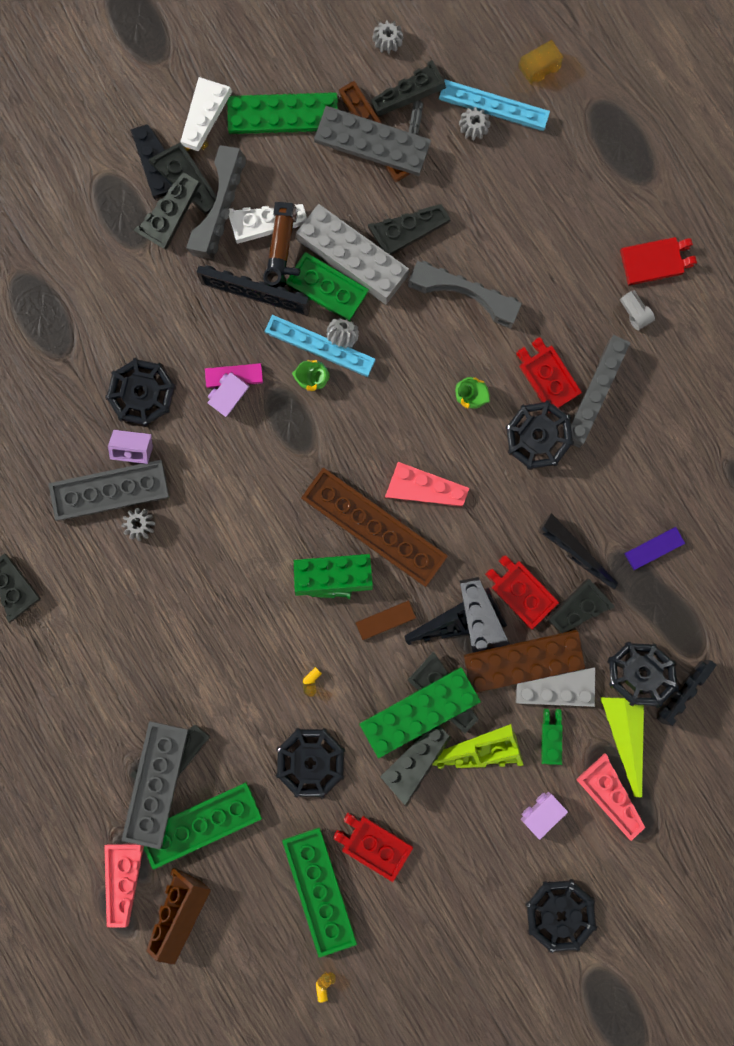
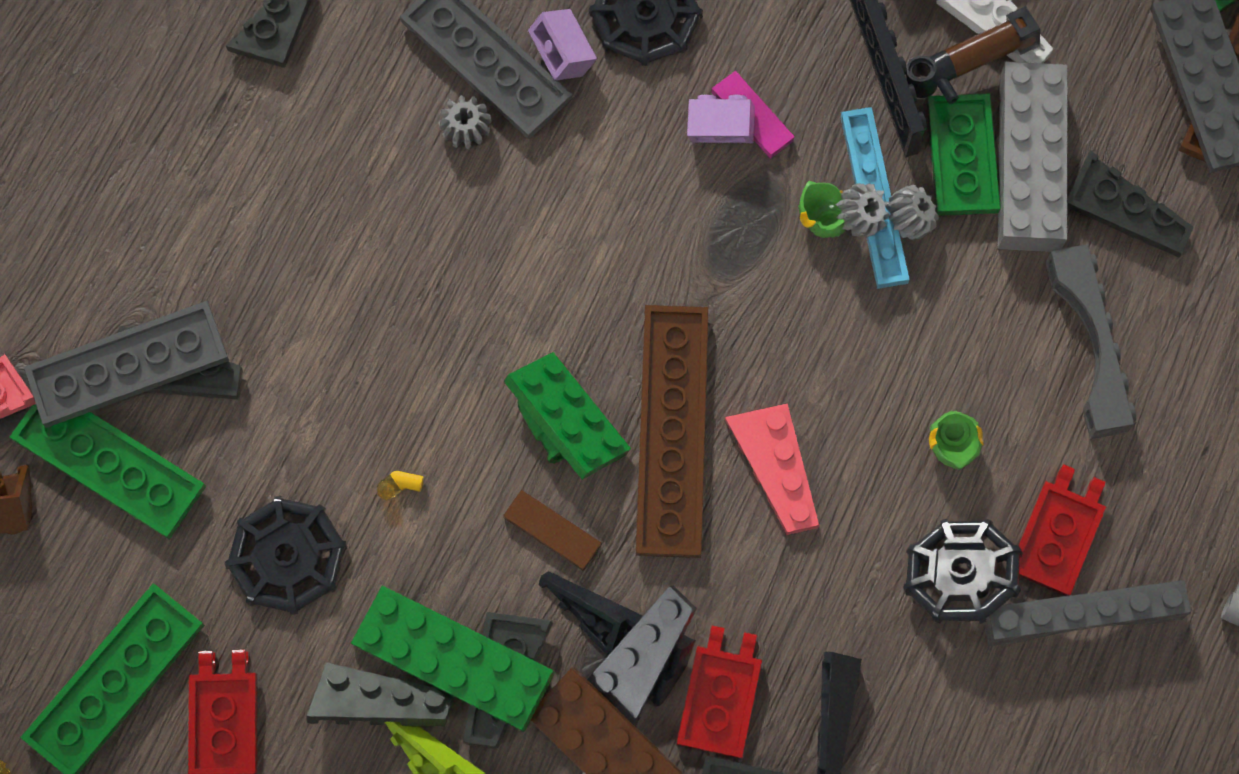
camera: 60 degrees right, 10 degrees down
(327, 356) = (863, 210): none -> light grey gear

